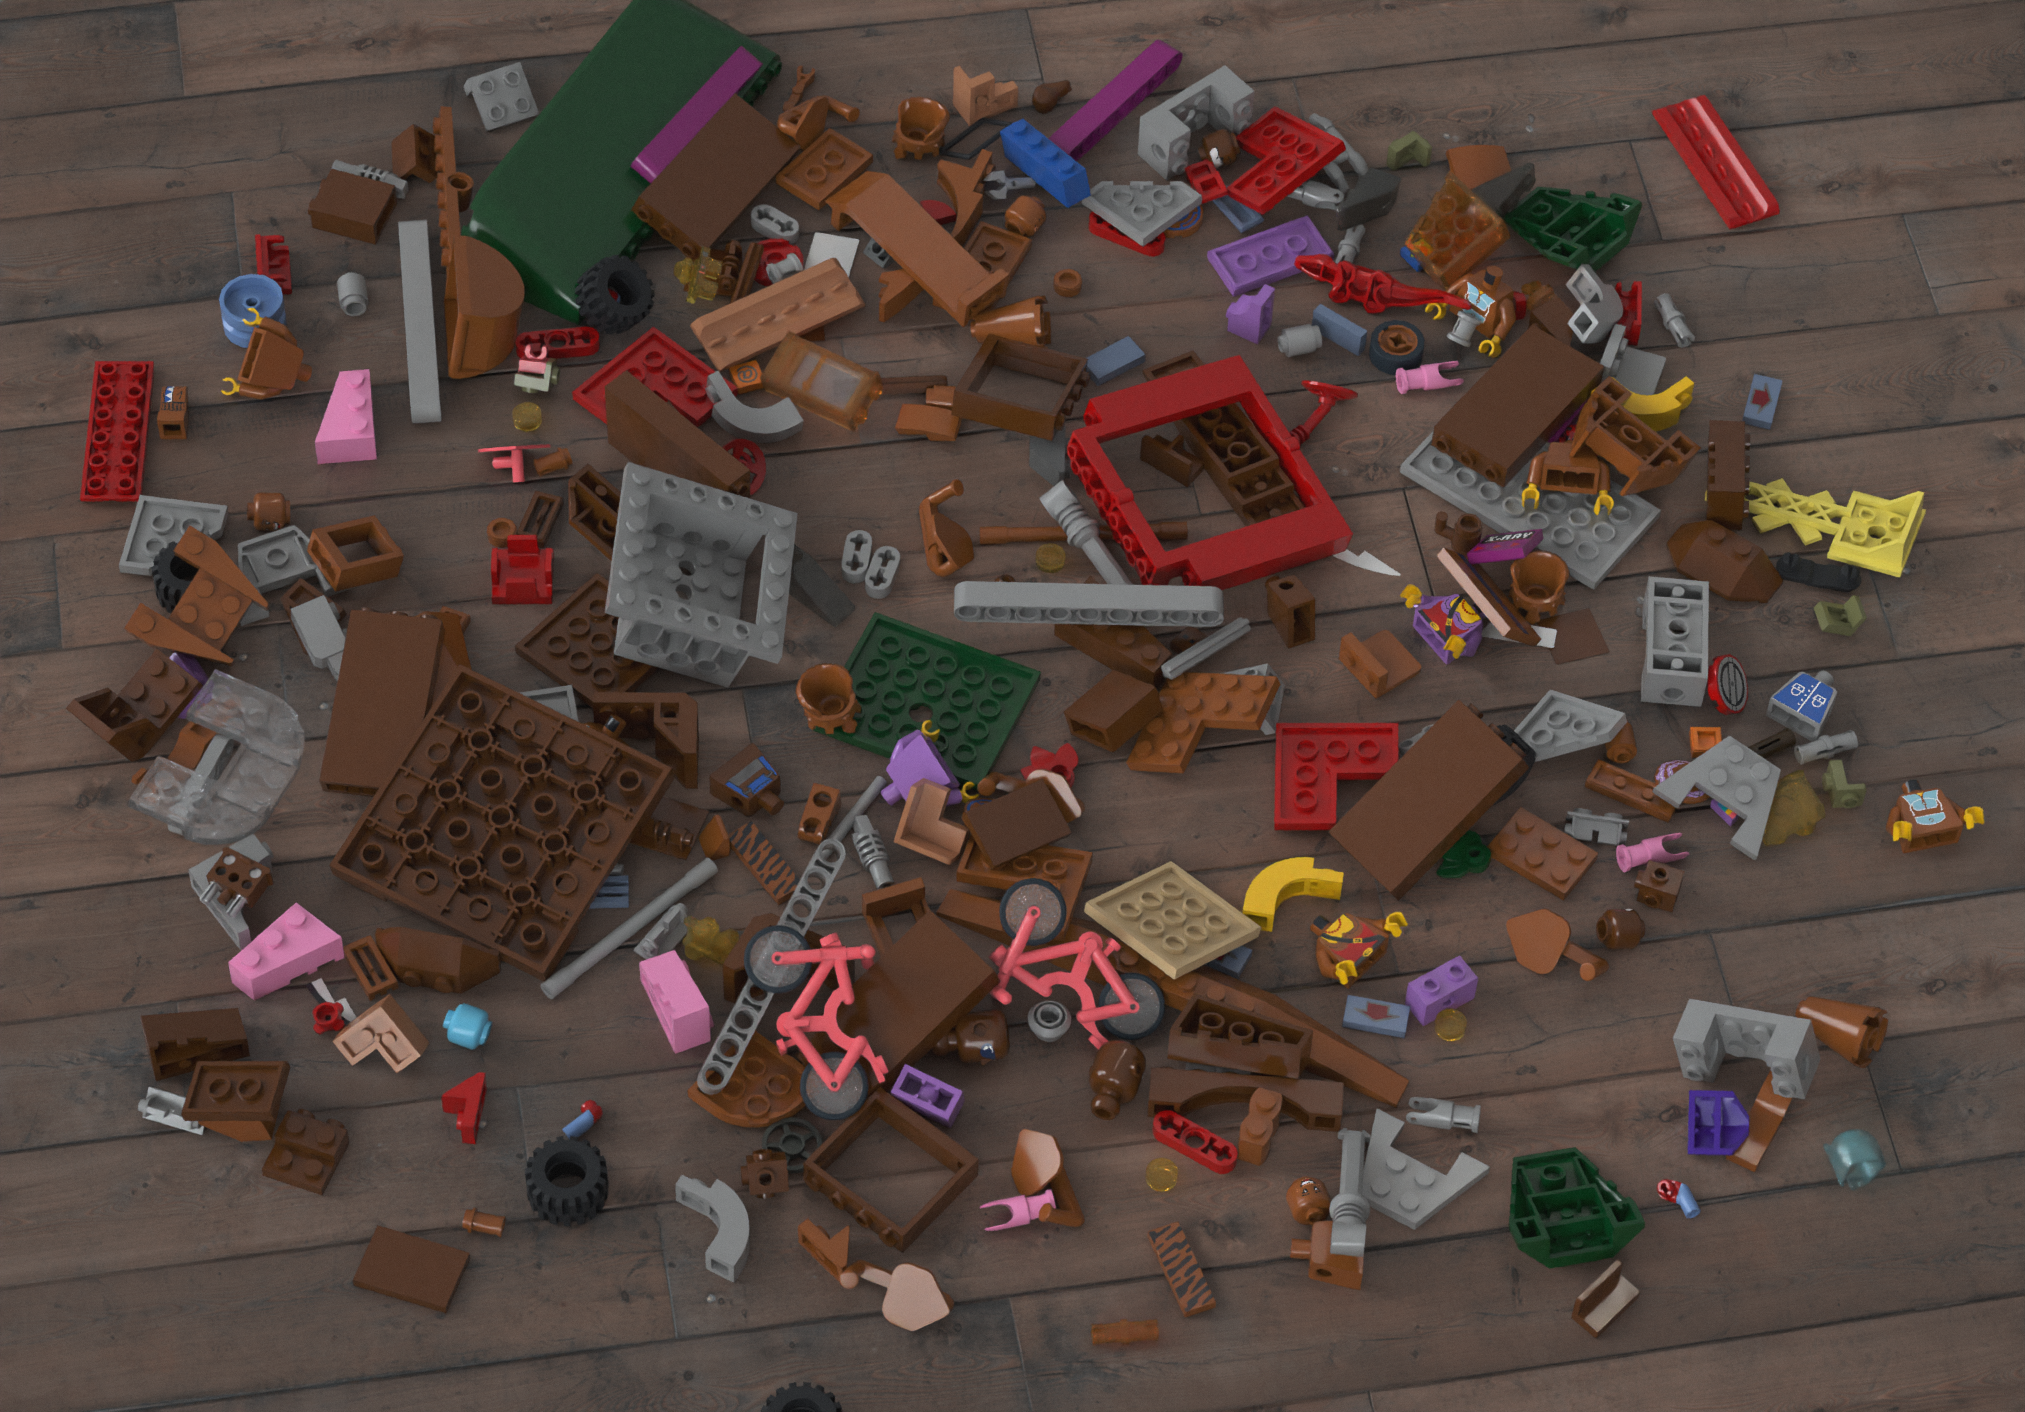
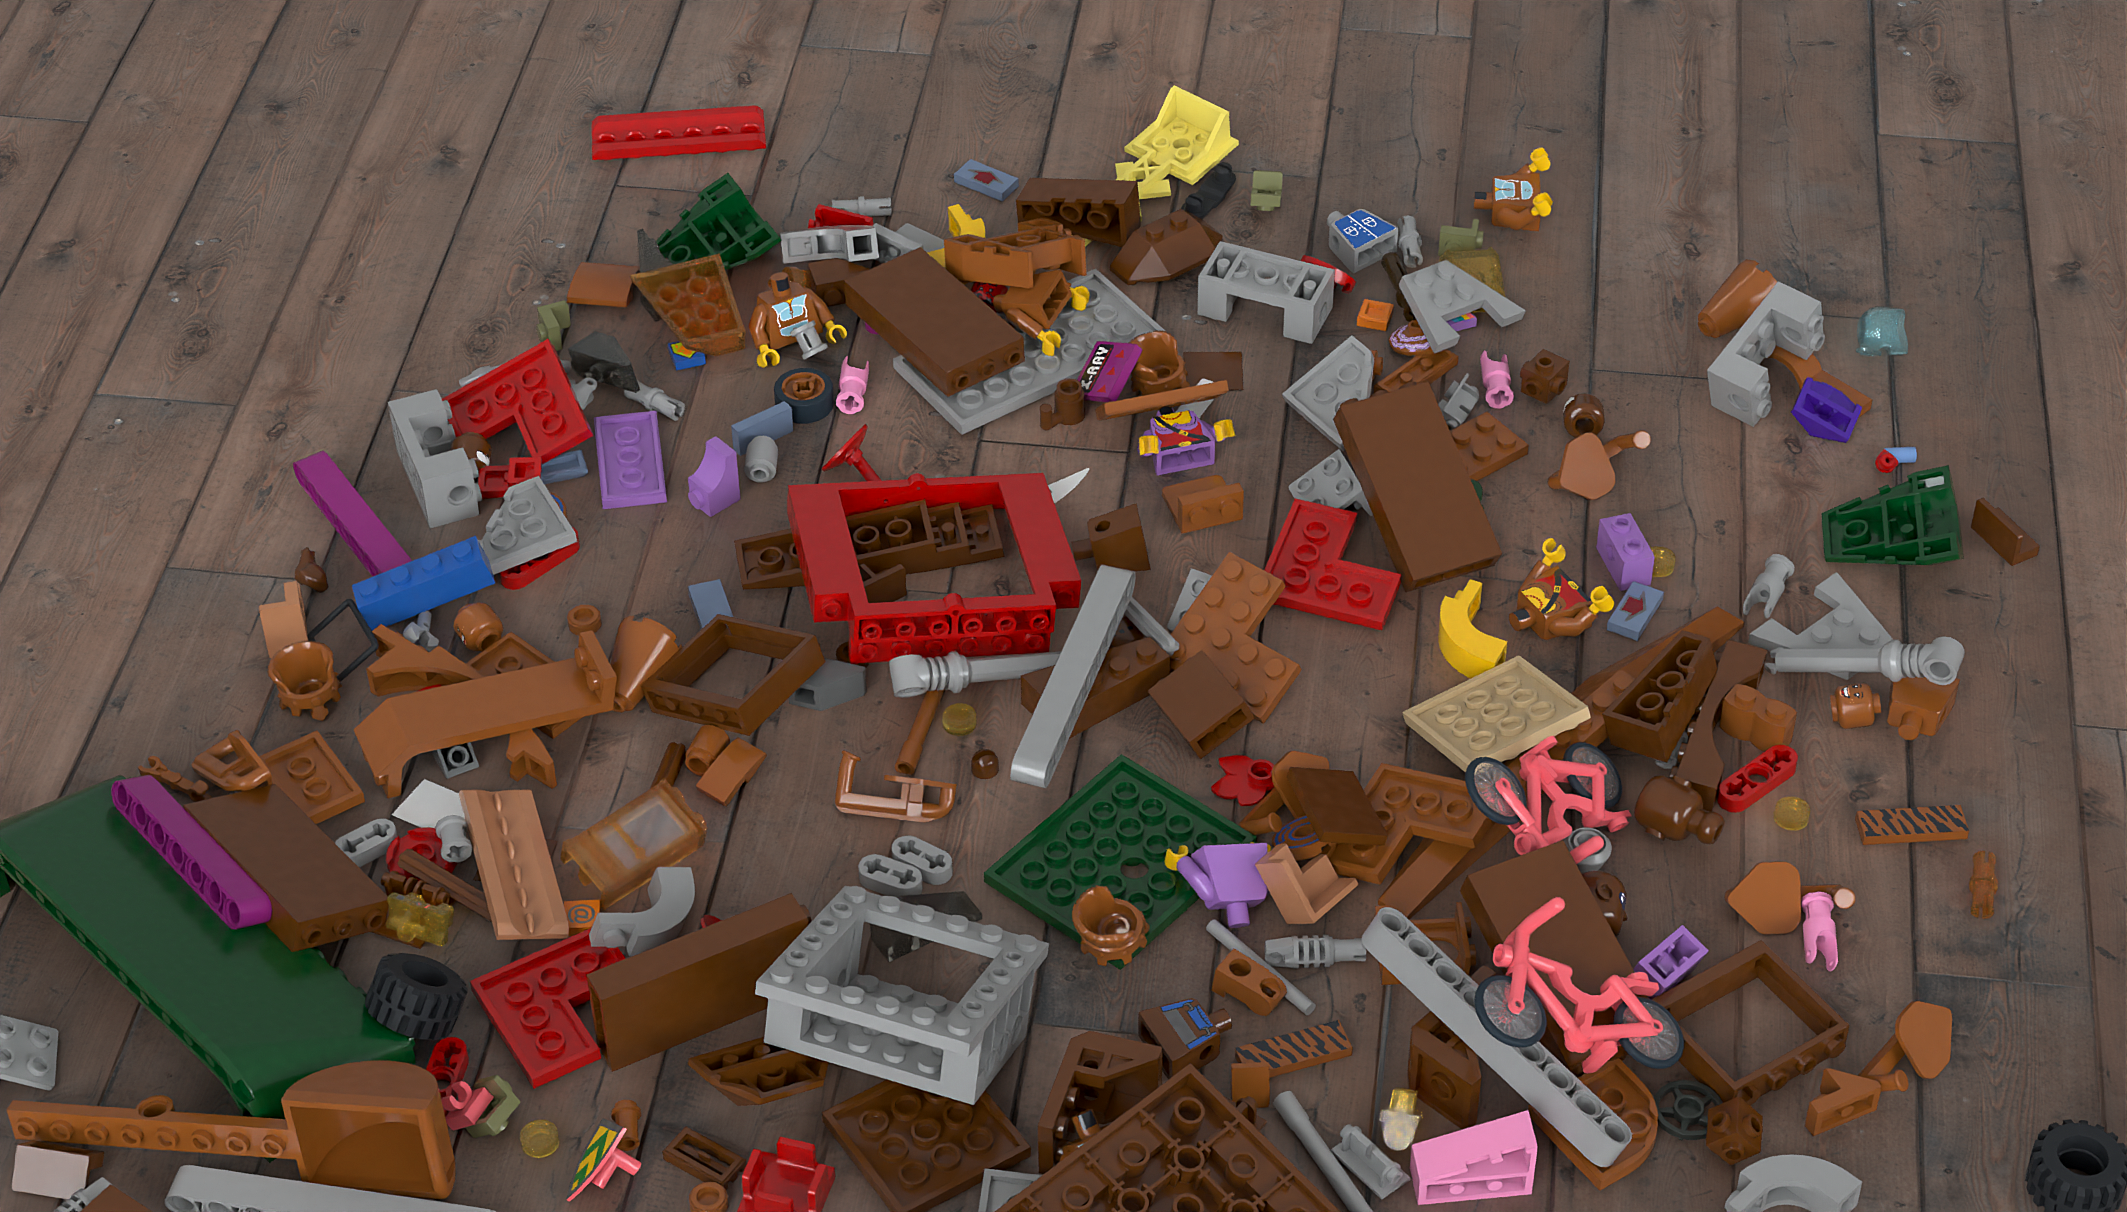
camera: 70 degrees left, 10 degrees down
(1372, 288) = (719, 391): red animal -> none

